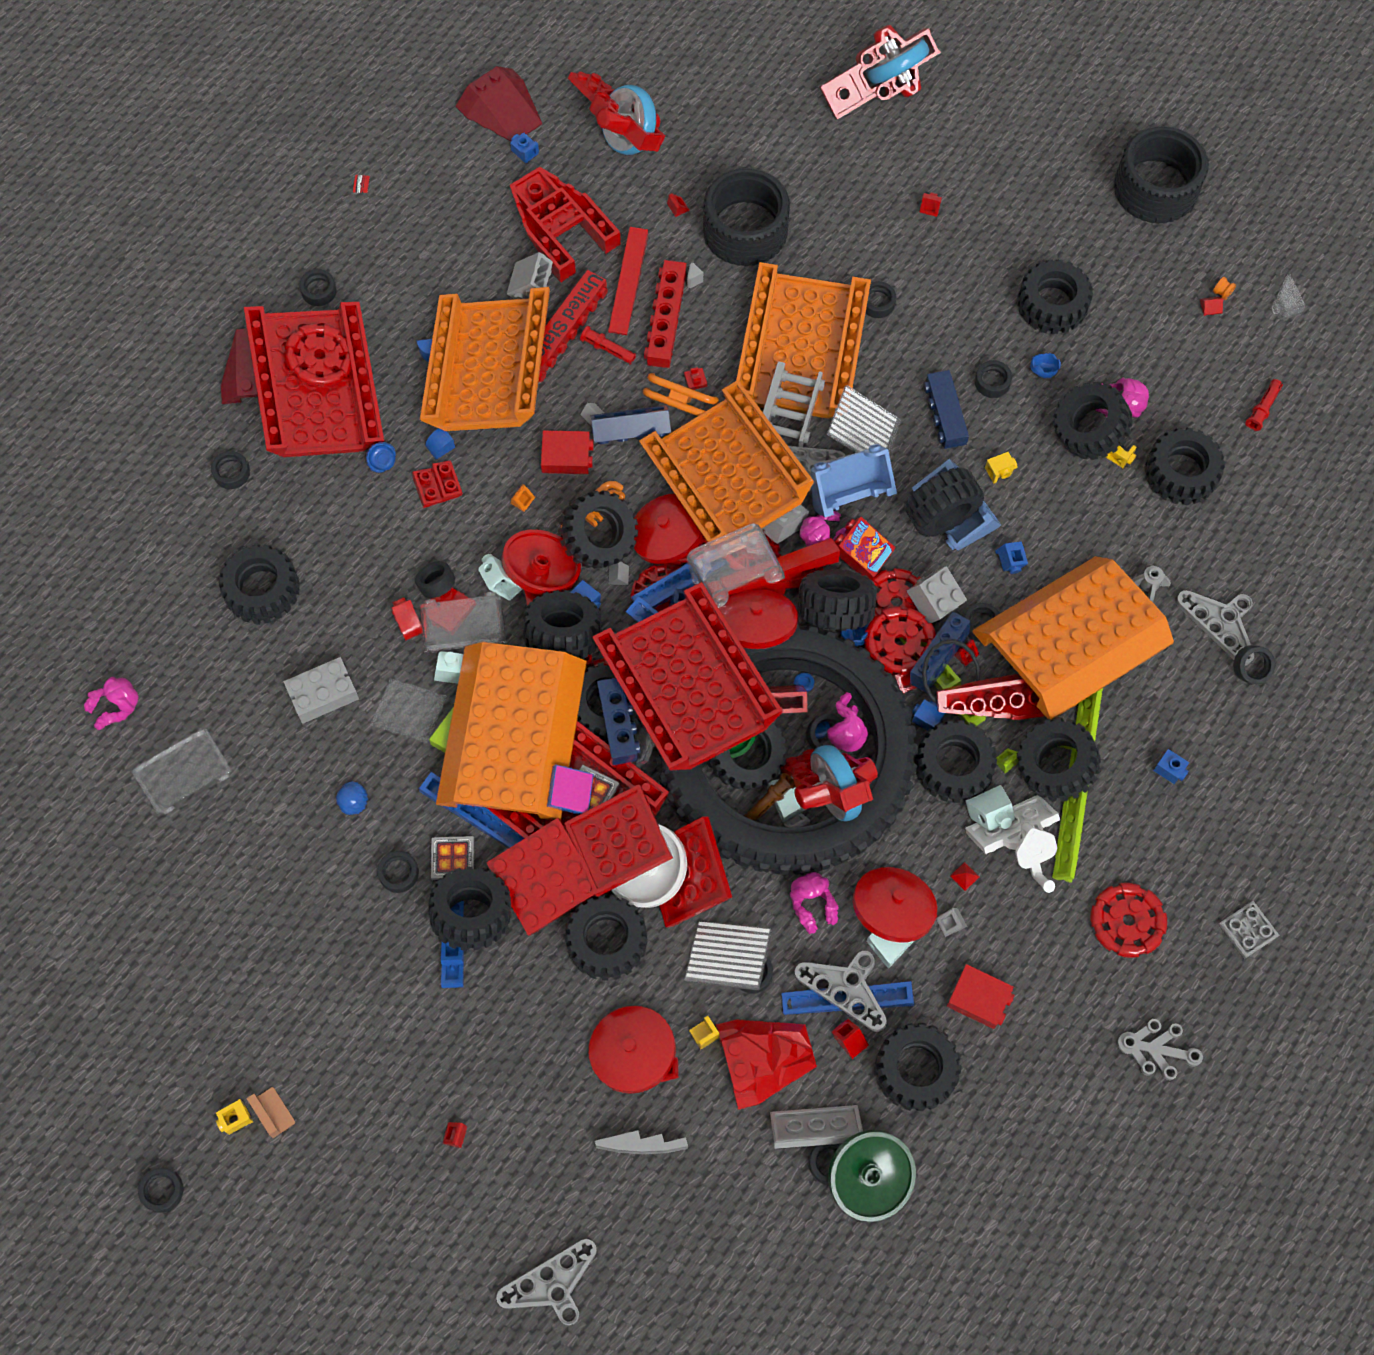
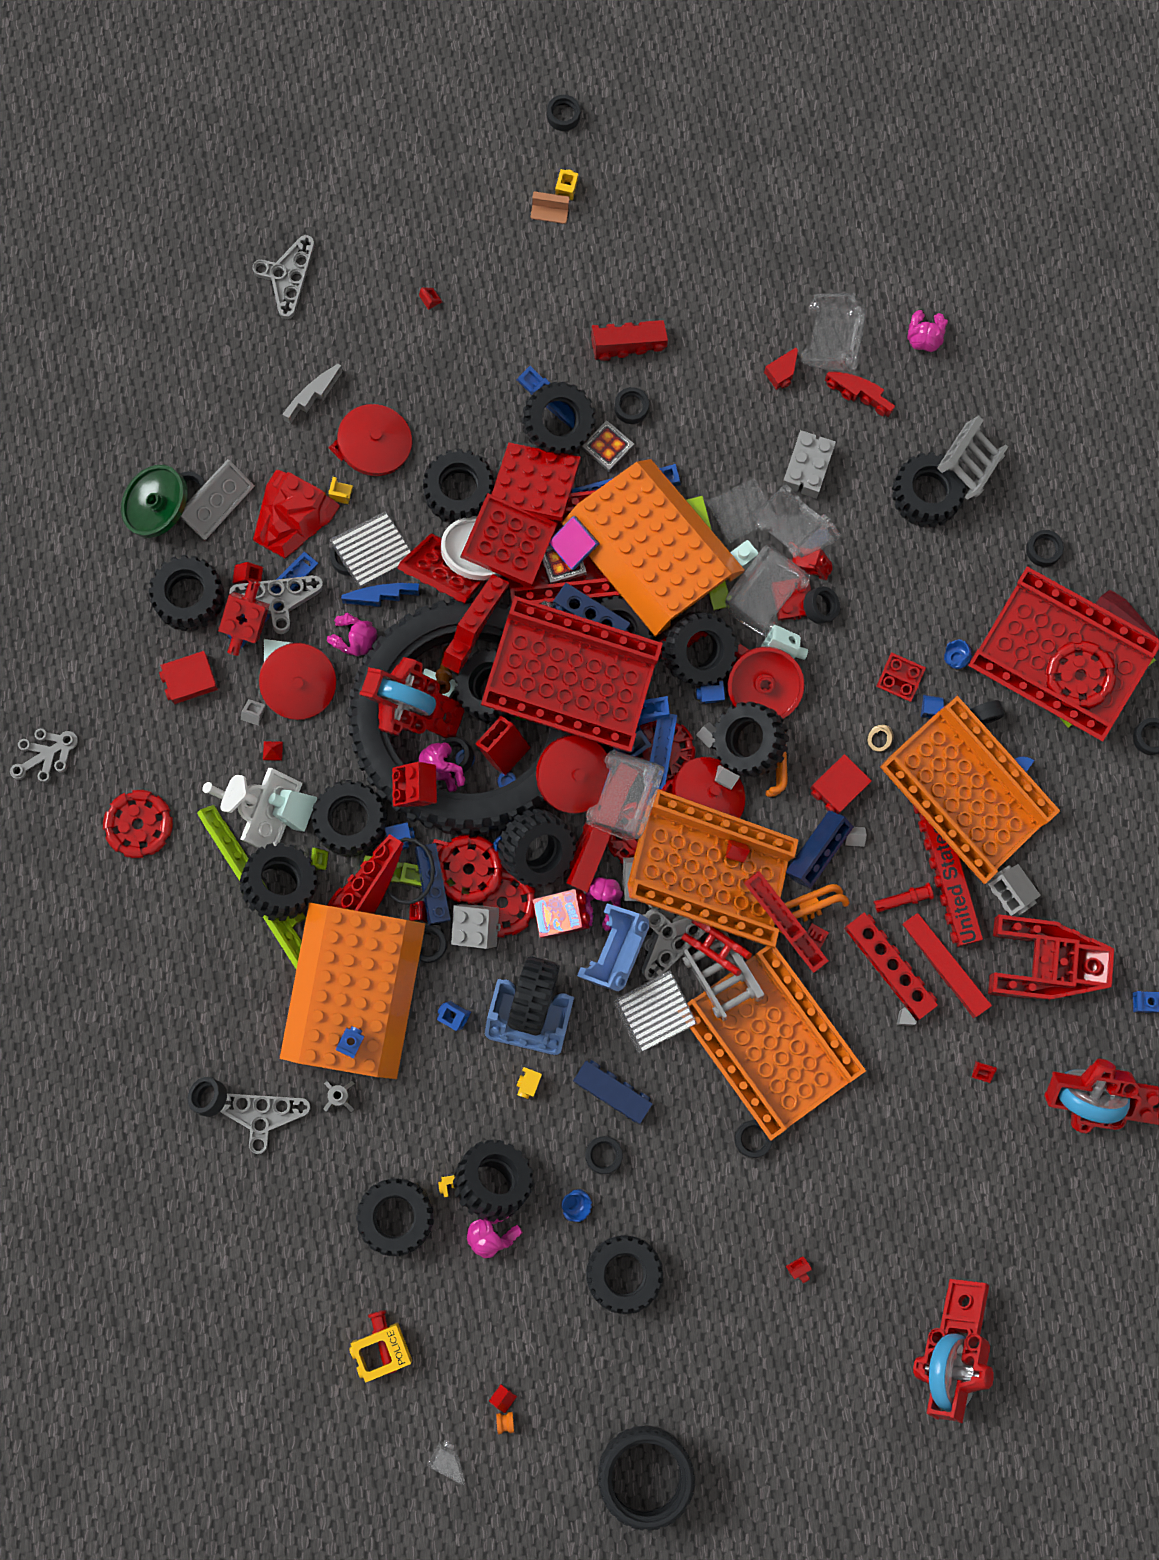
camera: 130 degrees right, 10 degrees up
(207, 579) = (957, 452): none -> light grey fence
(215, 708) = (854, 386): none -> red slope
(251, 782) = (782, 369): none -> red slope
(339, 925) = (628, 339): none -> red wedge
(352, 798) = (711, 421): blue hair -> none
(388, 645) = (795, 523): none -> clear windscreen
(408, 399) = (989, 711): none -> black tyre
(490, 461) = (876, 729): none -> tan piece
(522, 498) = (832, 724): orange slope -> none
(645, 524) = (725, 777): none -> light grey slope
(692, 466) = (737, 851): none -> red slope
(710, 392) = (786, 921): none -> red slope
(714, 794) = (473, 623): none -> red arch
(752, 187) = (955, 1100): black tyre -> none
(761, 917) = (373, 595): none -> blue slope
(781, 411) = (721, 957): none -> red piece
(889, 716) = (414, 784): none -> red slope
(892, 989) = (254, 611): none -> red brick
(1115, 589) = (344, 1047): none -> blue brick
(1172, 767) = (200, 961): blue brick -> none
(1248, 929) = (52, 895): light grey tile -> none
(1259, 392) = (396, 1346): none -> yellow window

